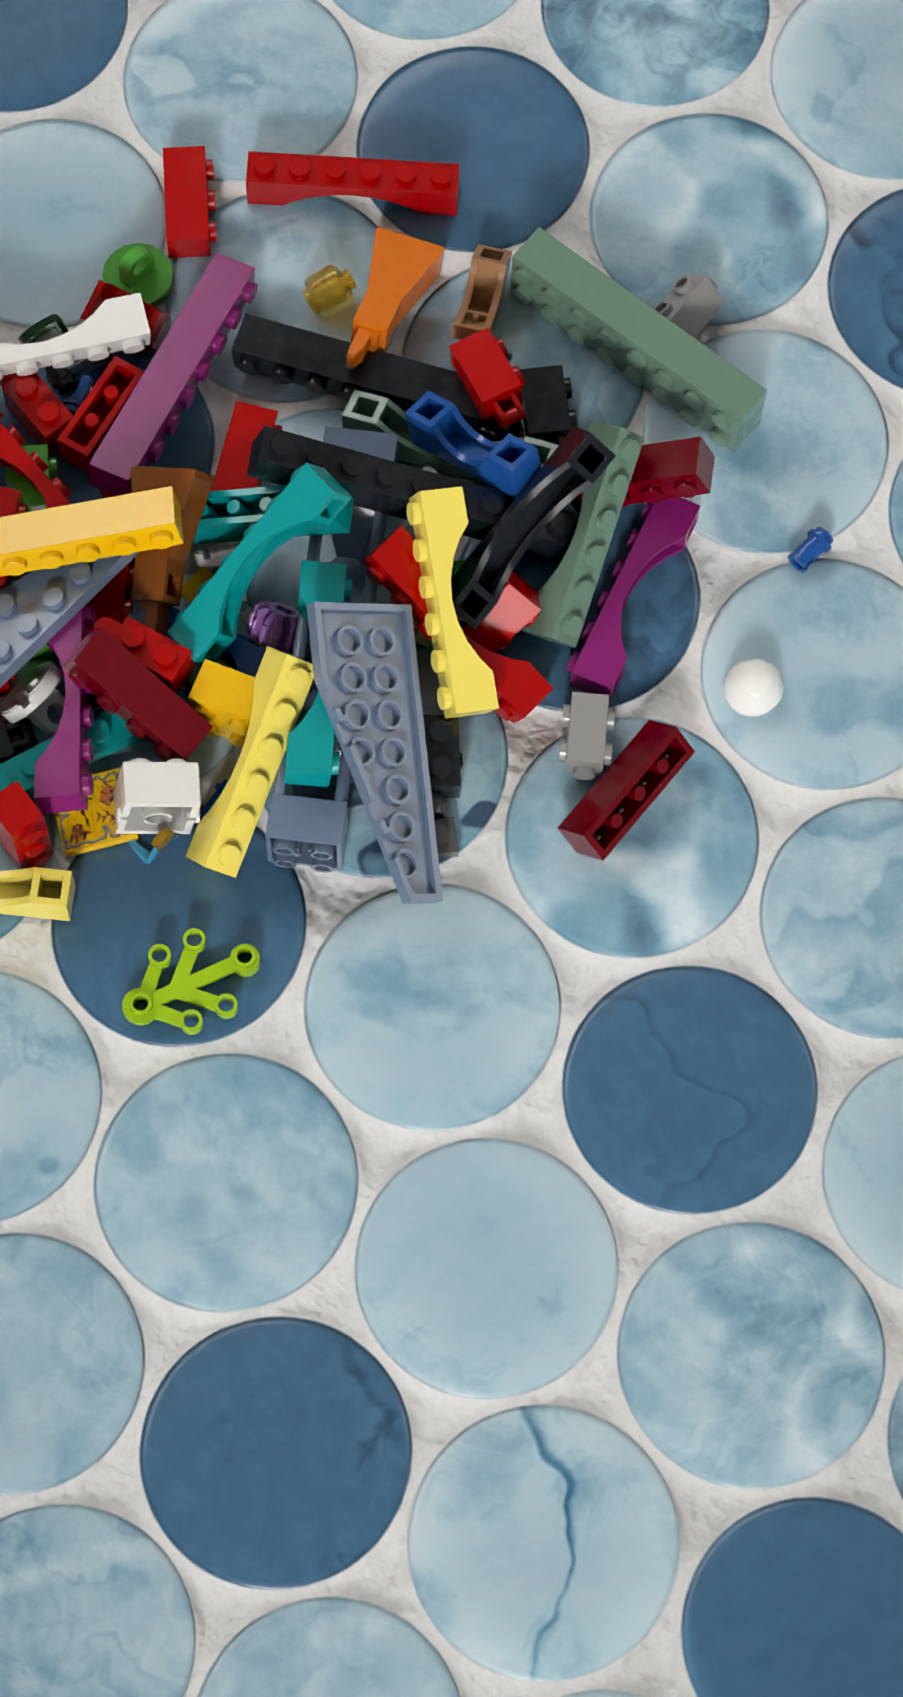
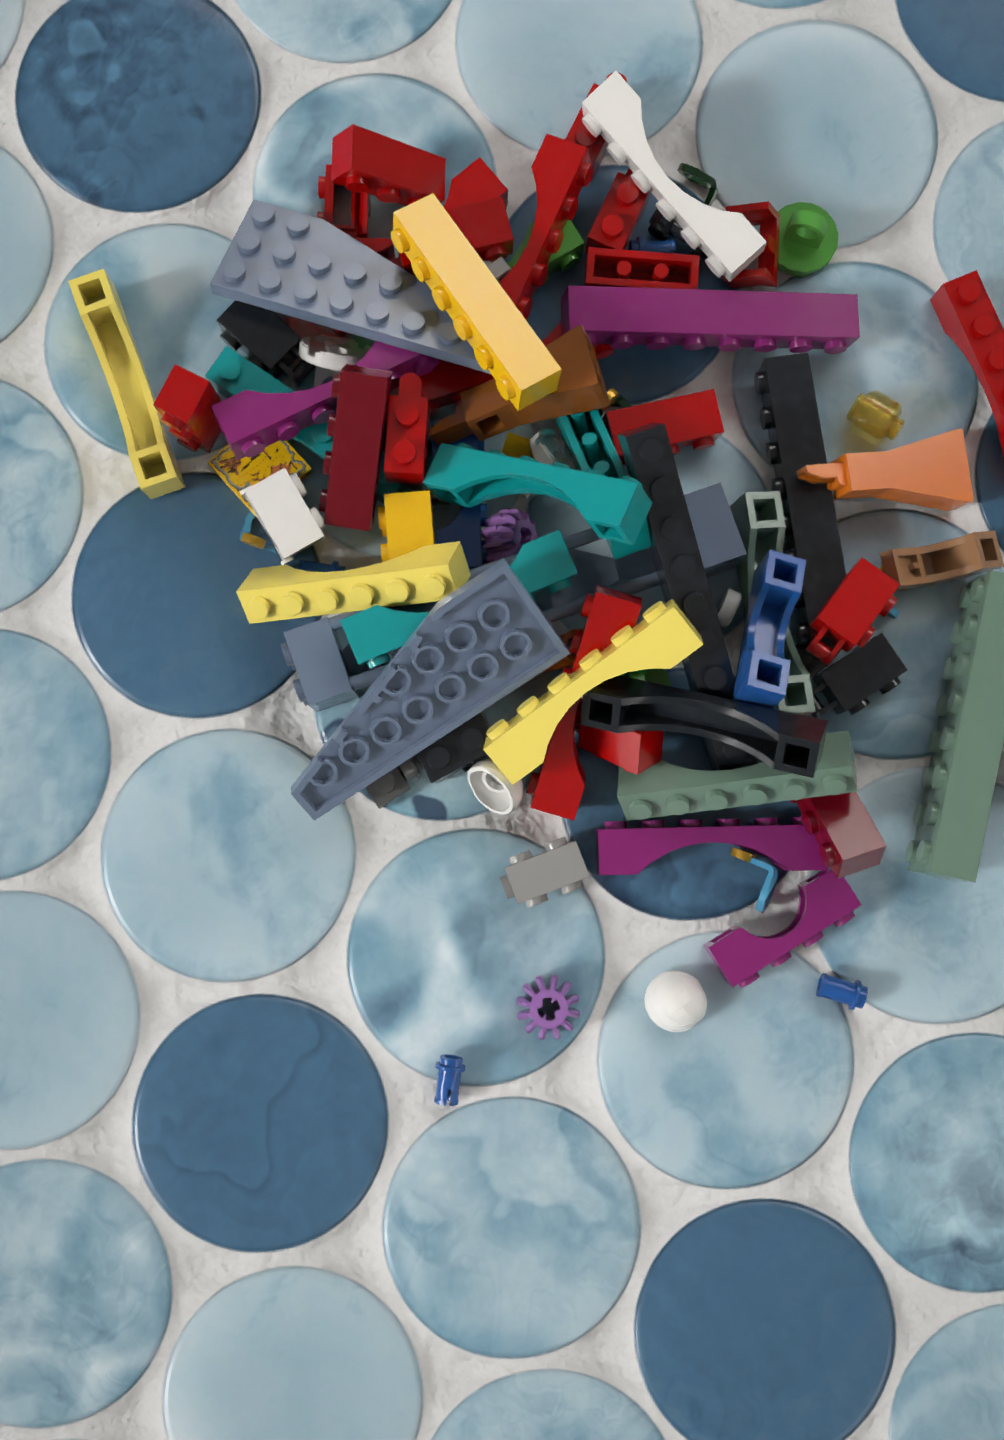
camera: 60 degrees right, 15 degrees up
(186, 986) = (136, 629): lime plant -> none
(188, 201) = (899, 243): red brick -> none
(489, 740) = (494, 788): none -> white piece
(626, 789) = (509, 931): dark red brick -> none
(673, 556) = (770, 882): none -> dark azure piece
(692, 790) = (560, 1011): none -> medium lavender gear
(725, 527) = (821, 903): none -> magenta arch
(729, 903) = (448, 1079): none -> blue pin

